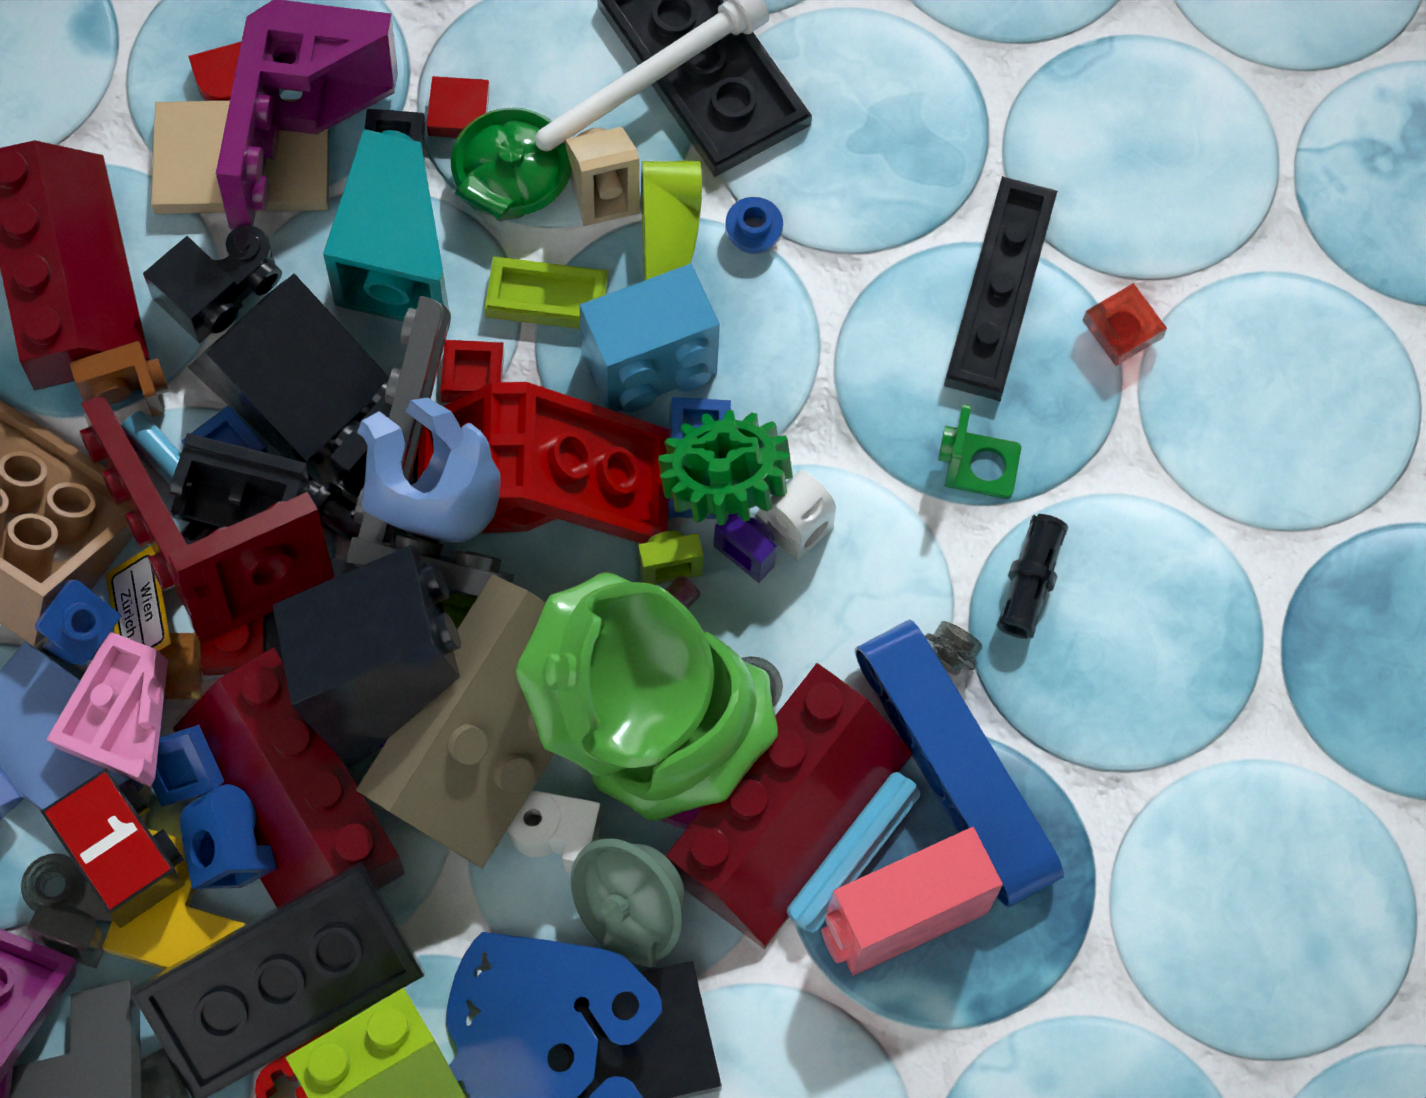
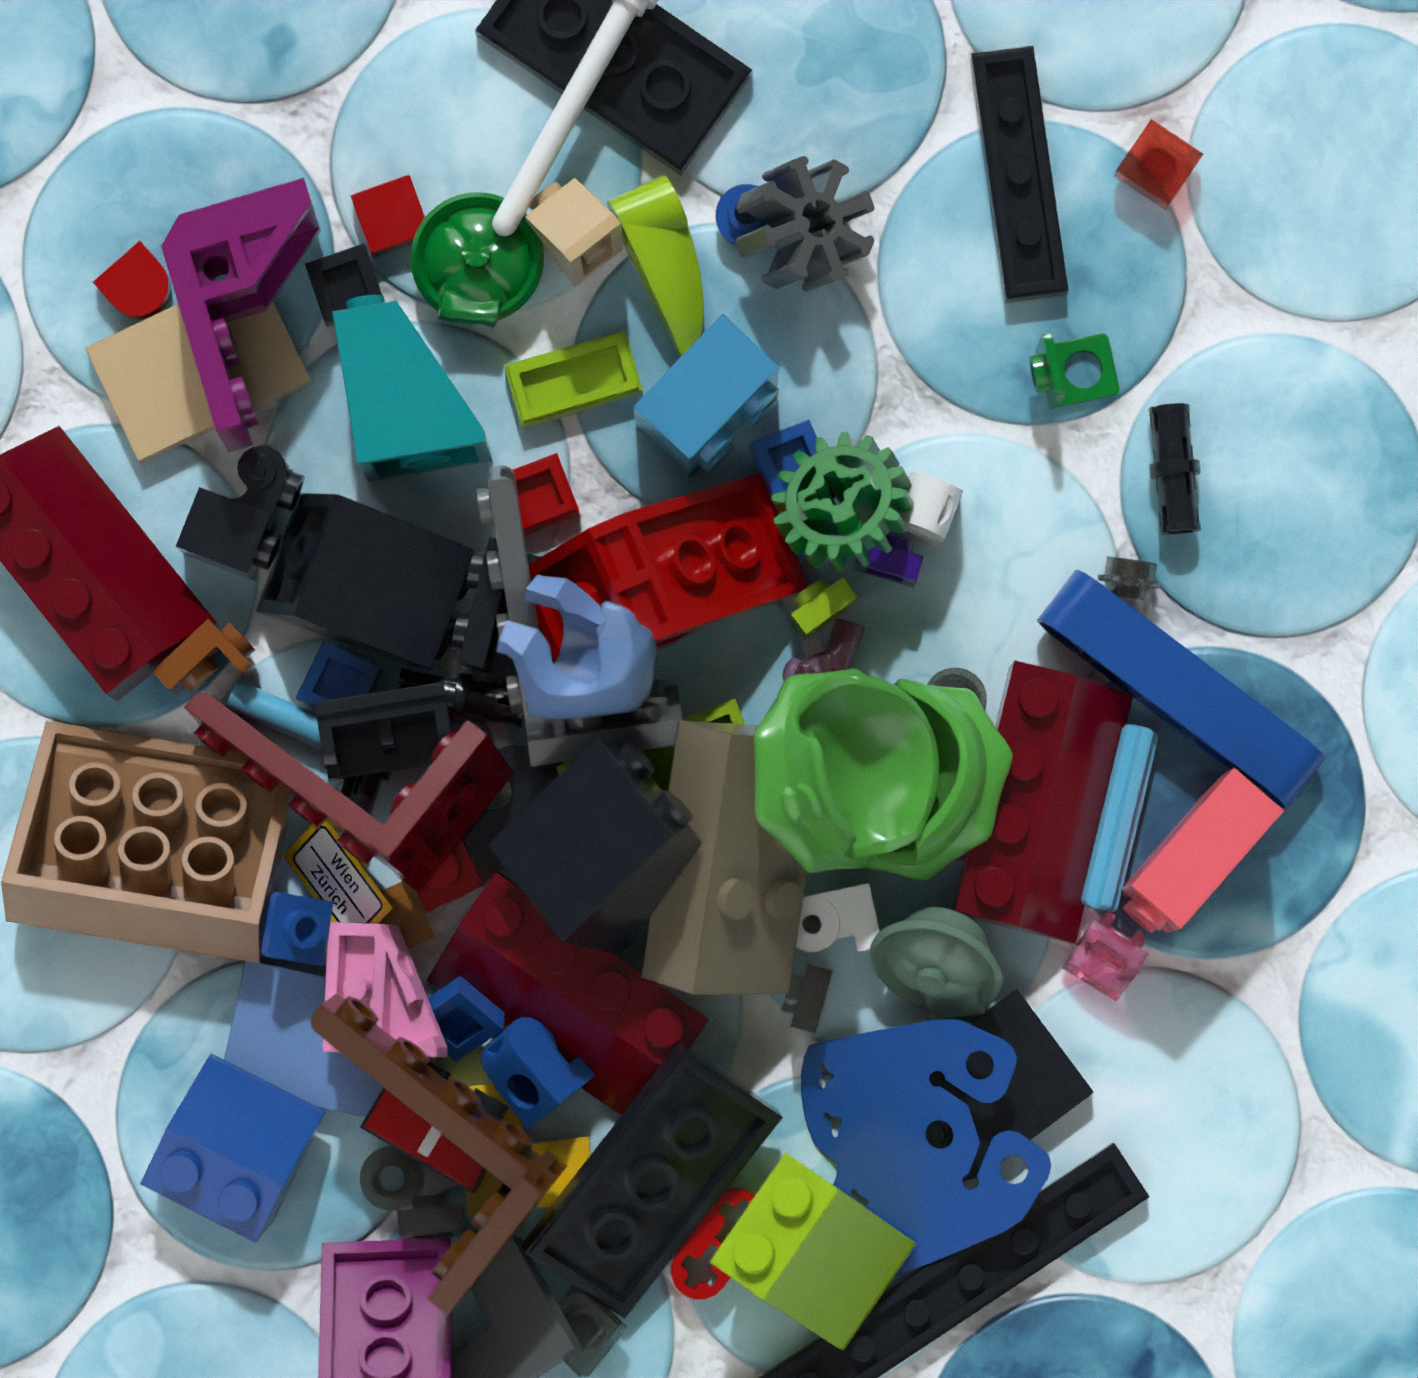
camera: 20 degrees left, 15 degrees up
(118, 939) = (456, 1114): none -> reddish brown bracket
(499, 885) = (807, 997): none -> clear smoke plate
(786, 967) = (1106, 958): none -> clear pink tile
(792, 215) = (805, 224): none -> dark grey gear

